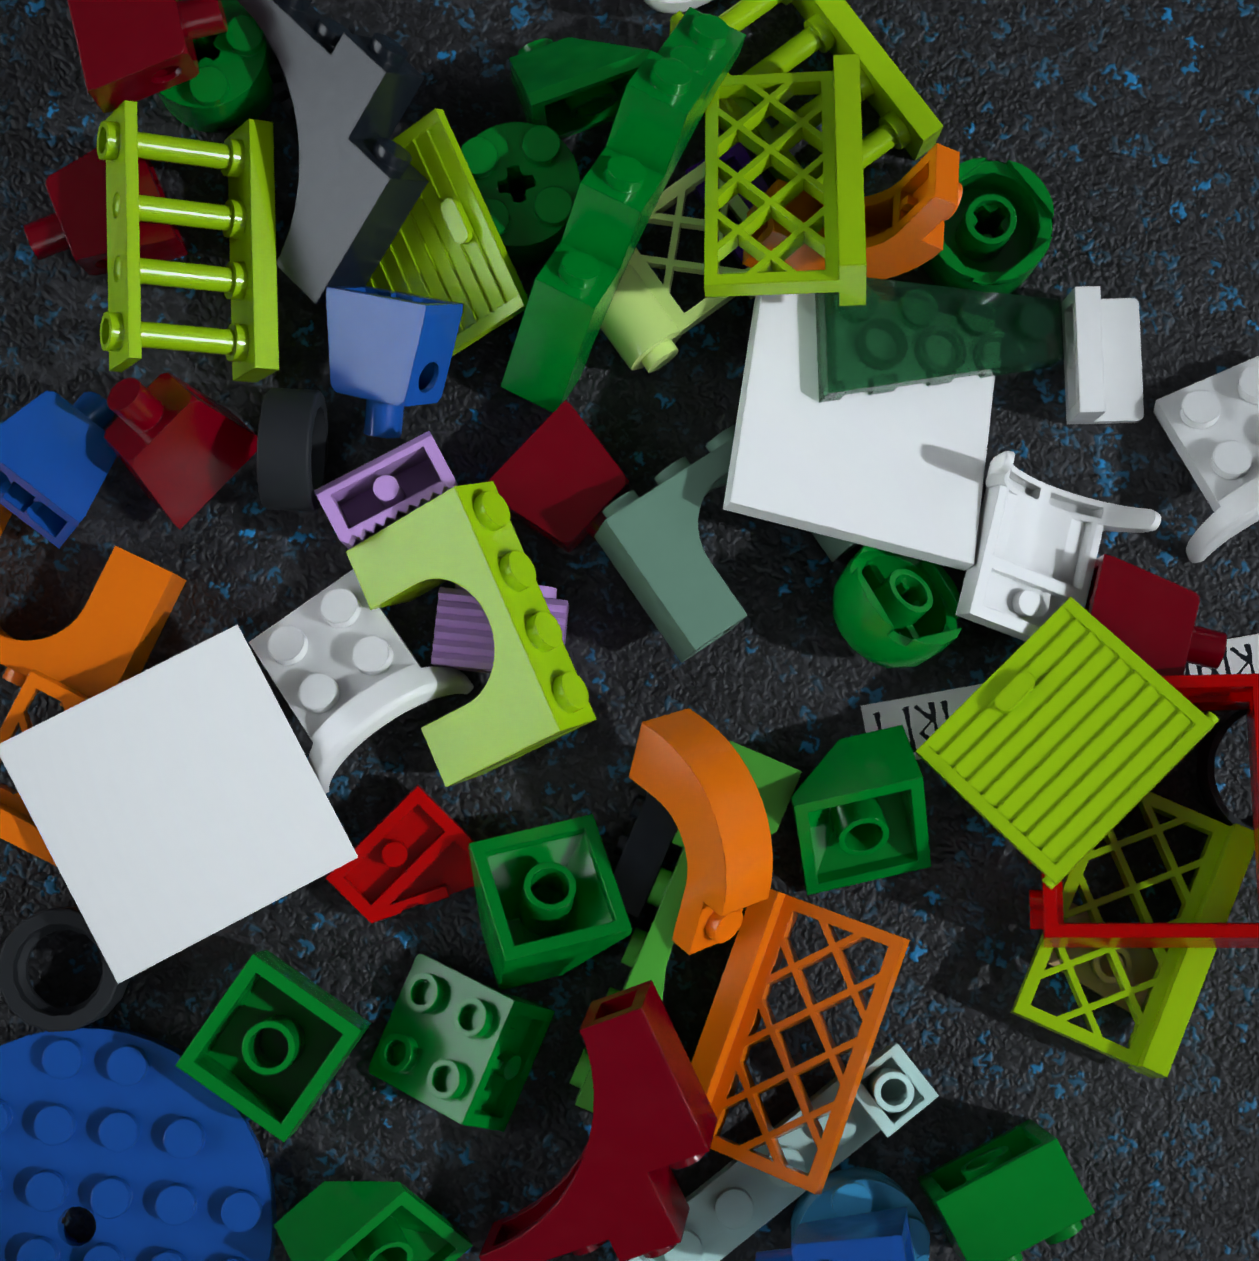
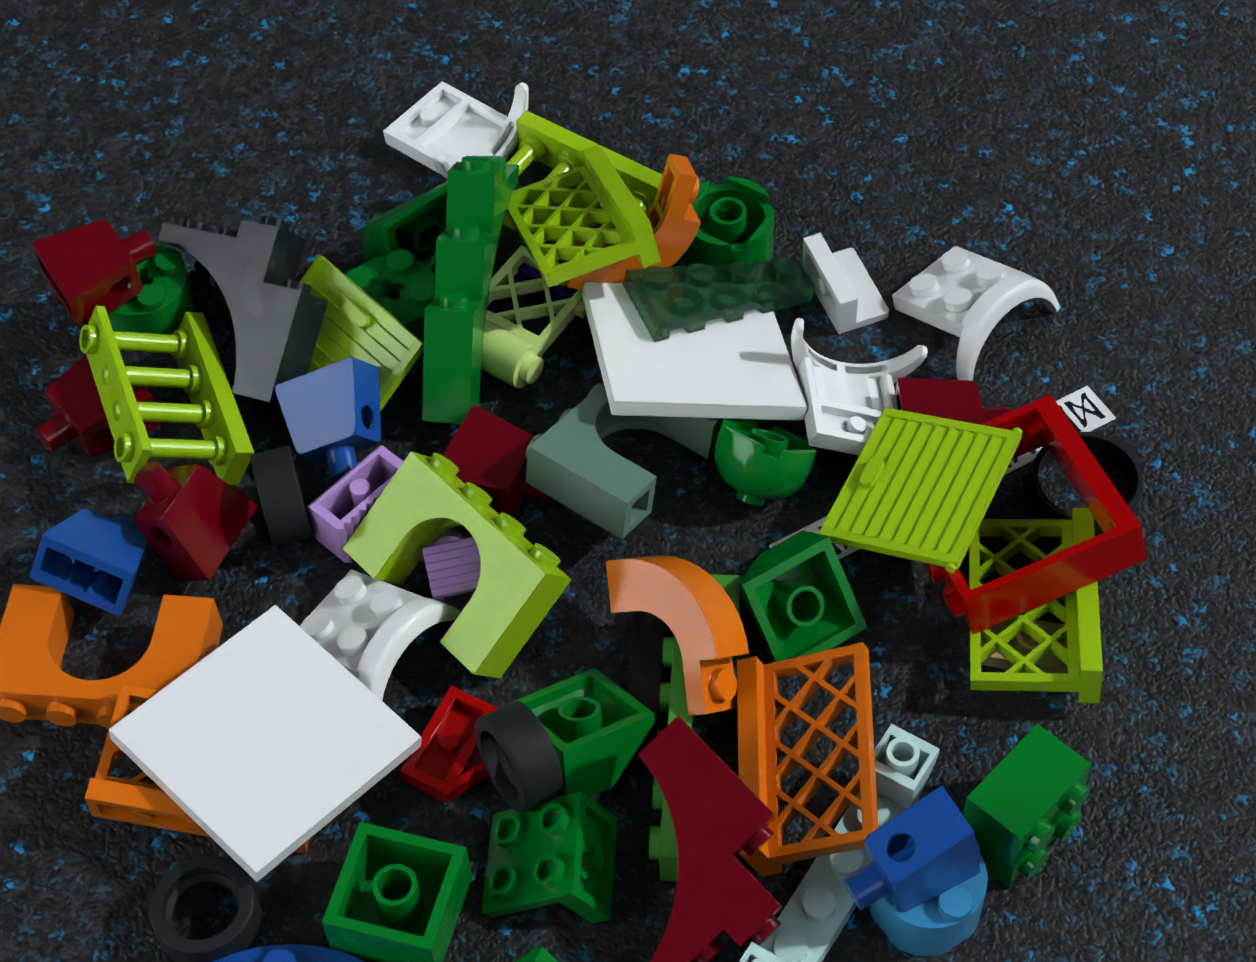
camera: 15 degrees left, 30 degrees down
(458, 930) = (518, 756): none -> black tyre

